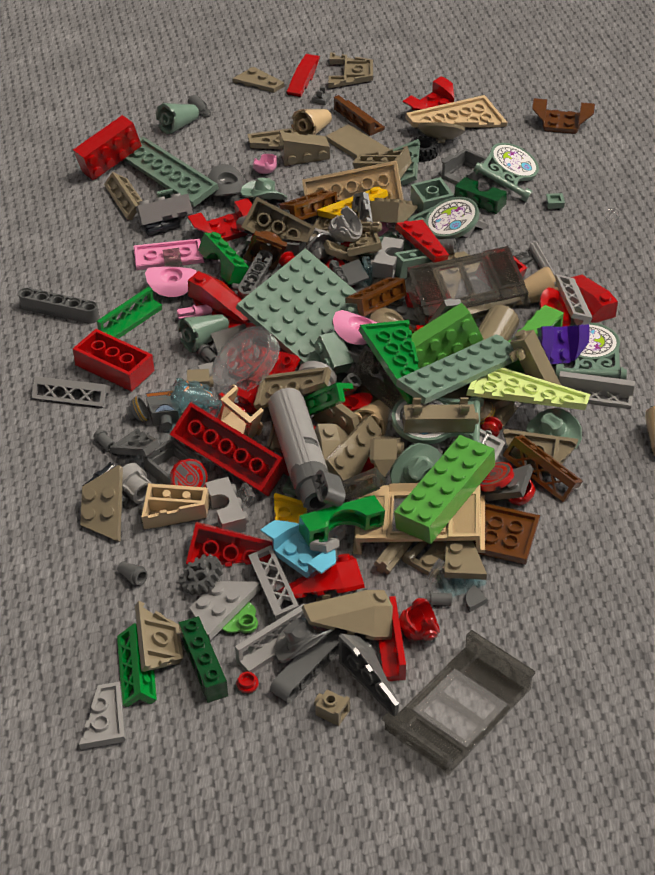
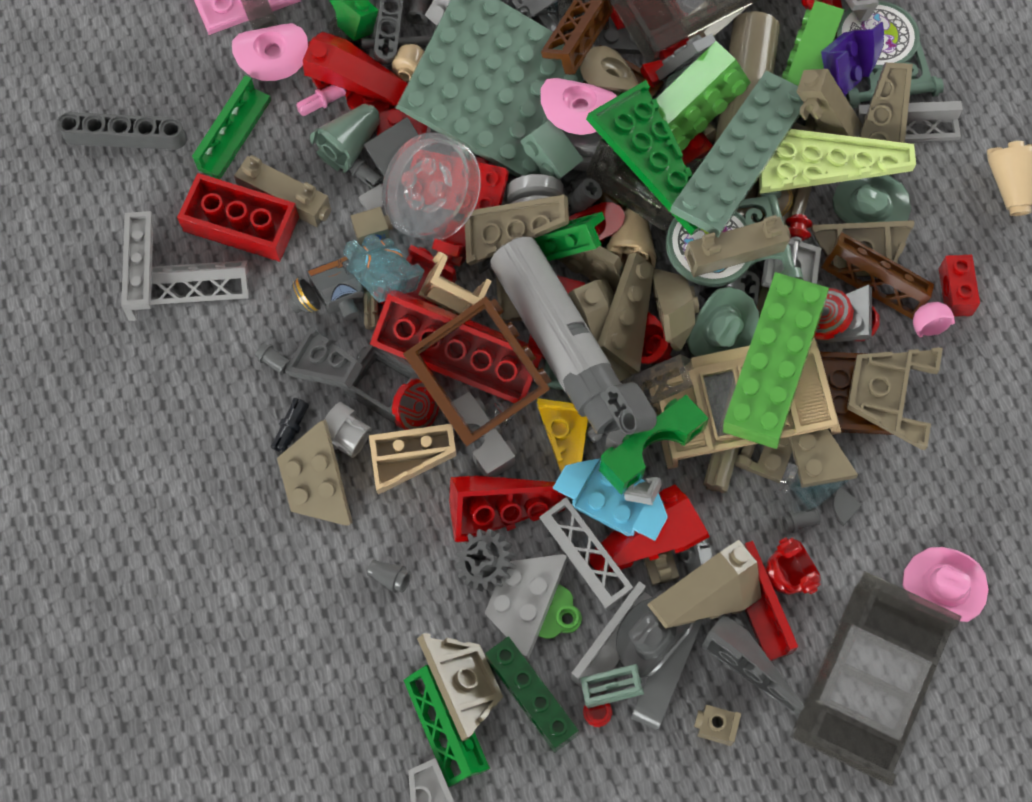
camera: 15 degrees left, 25 degrees up
(35, 370) = (137, 263): none -> light grey fence
(164, 362) = (310, 203): none -> dark tan brick
(225, 425) = (438, 393): none -> reddish brown window
(261, 662) = (615, 696): none -> sand green tile
(523, 526) = (881, 387): none -> dark tan wing
(541, 655) = (948, 580): none -> bright pink hat
(574, 500) = (932, 319): none -> bright pink hair
(580, 372) = (889, 104): none -> dark tan wing
(601, 485) = (959, 284): none -> red brick

